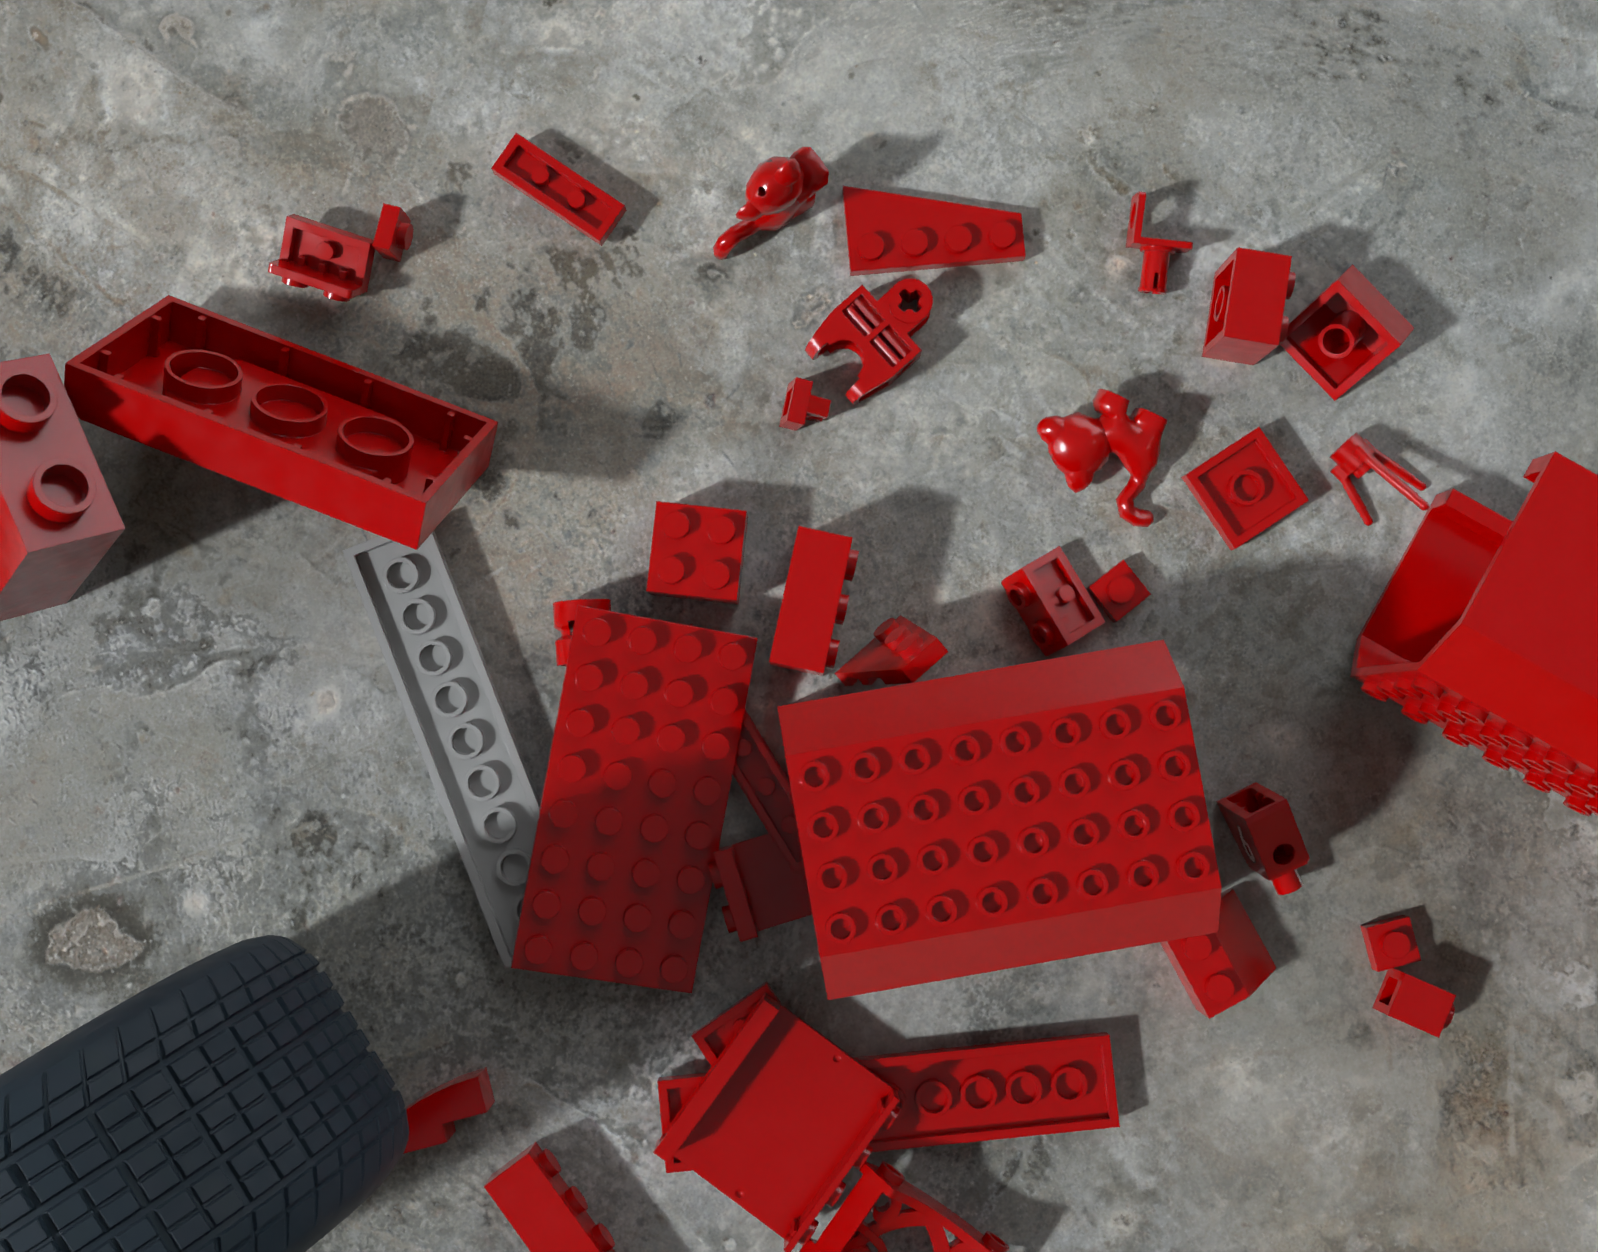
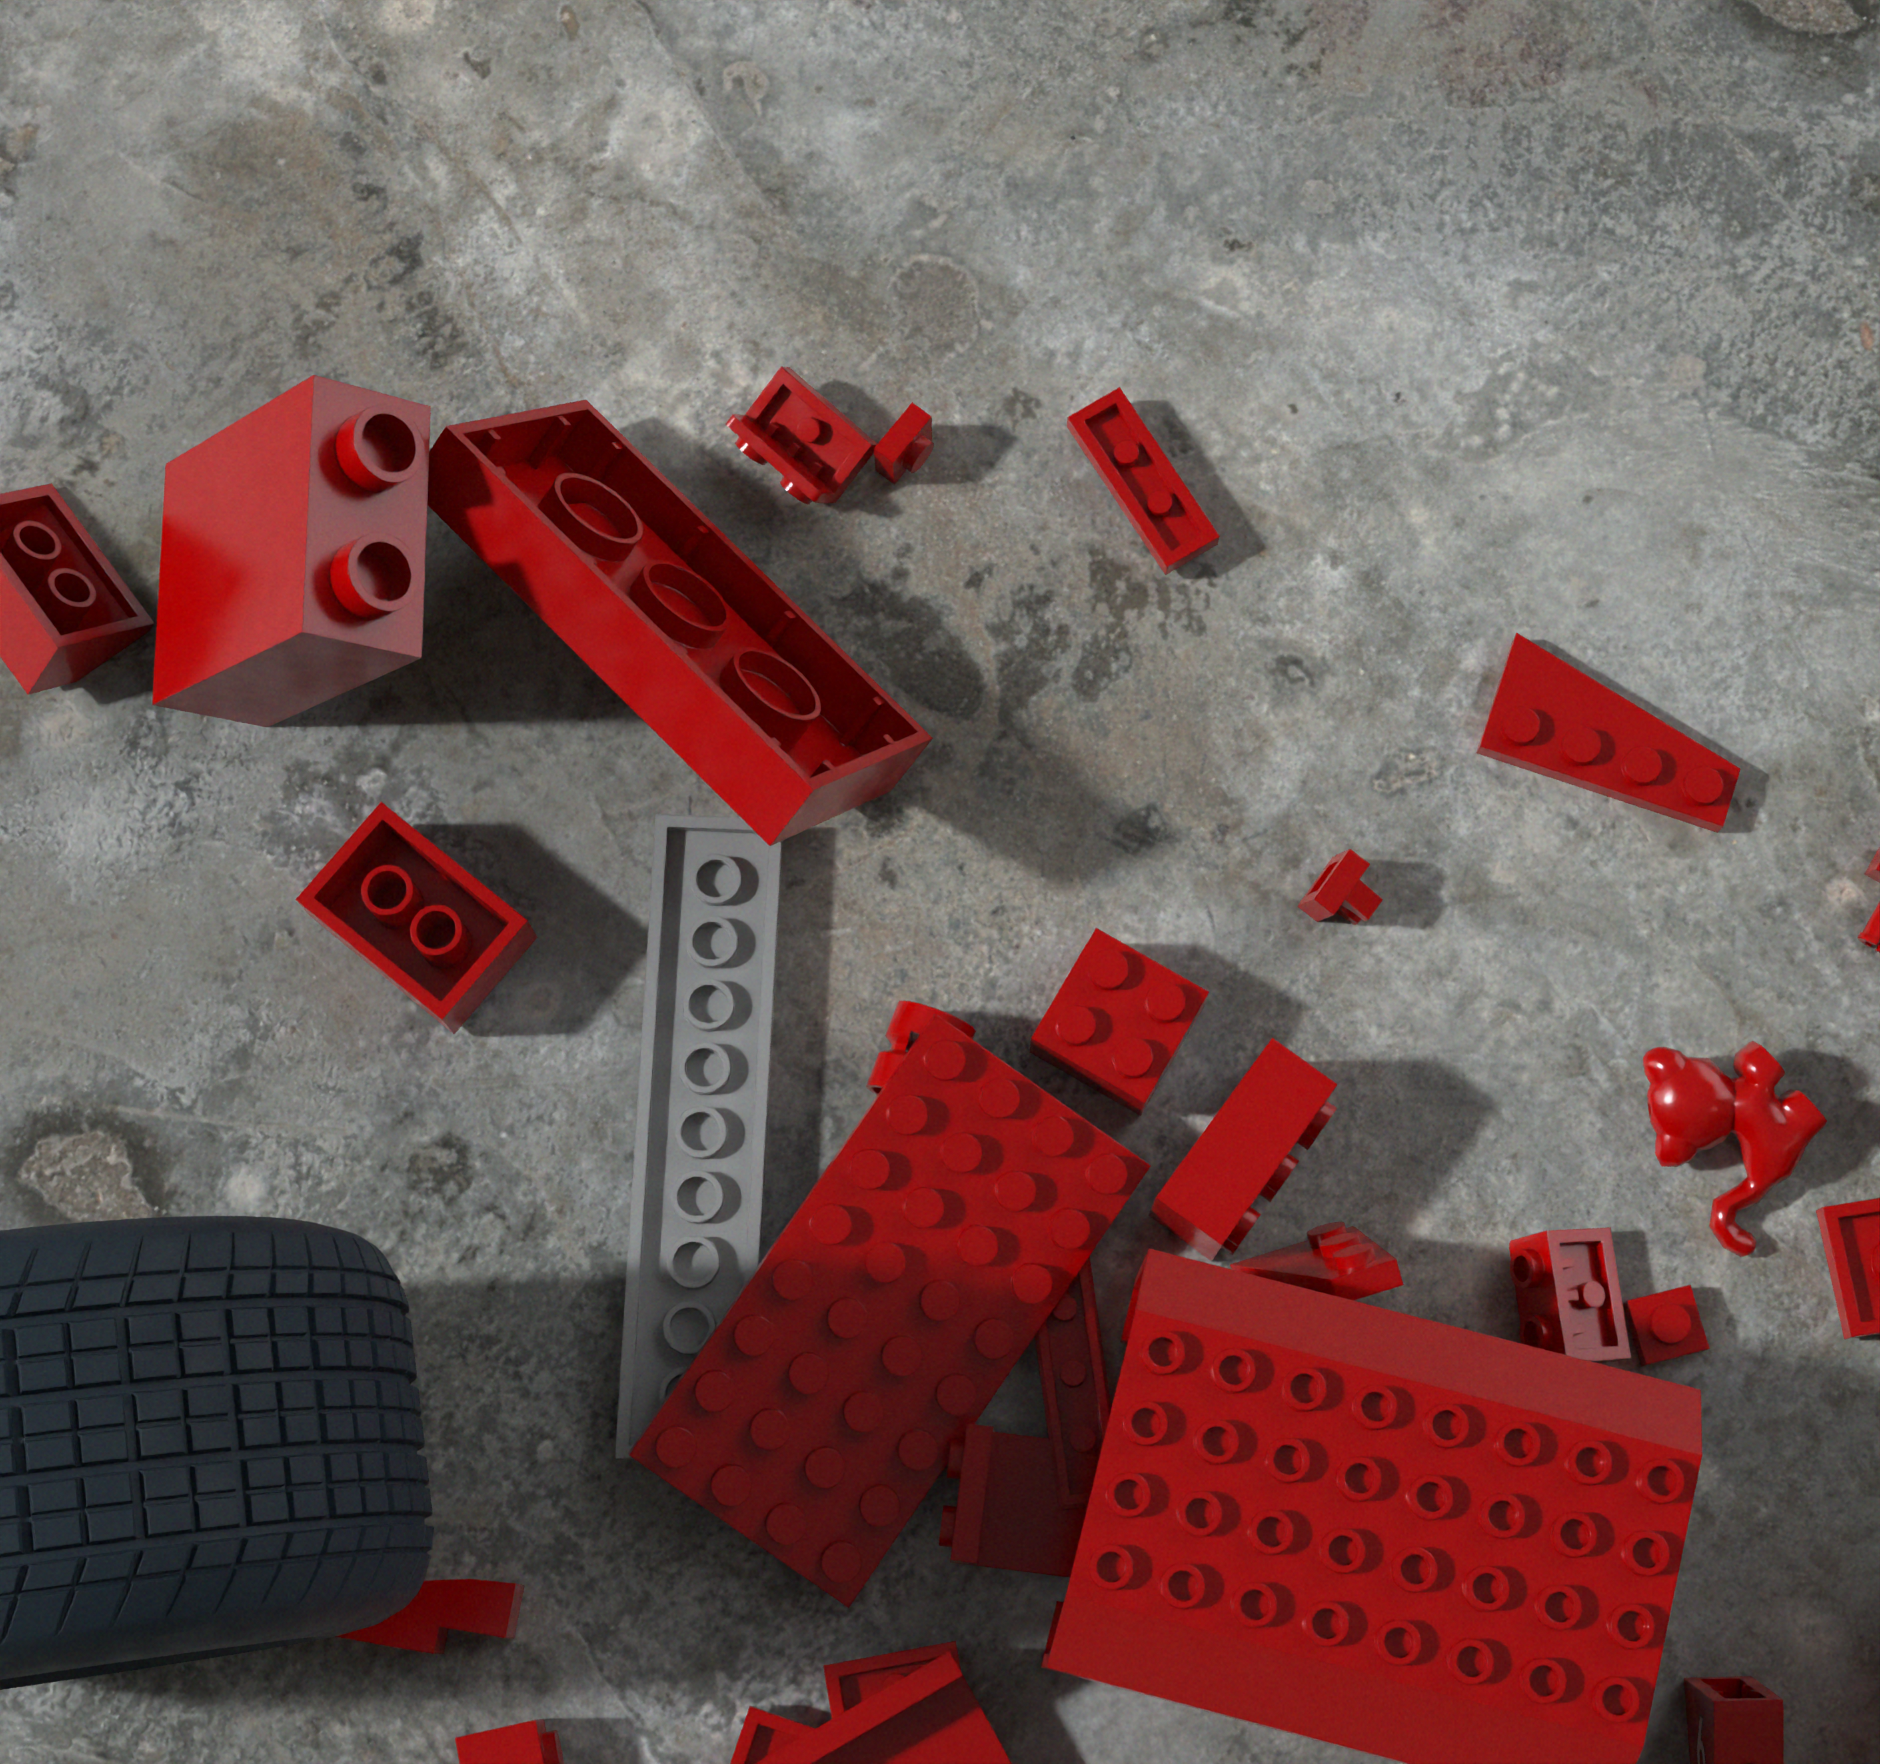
camera: 25 degrees right, 10 degrees down
(218, 687) = (417, 917): none -> red brick
(775, 195) = (1423, 607): red animal -> none
(876, 333) = (1480, 841): red piece -> none

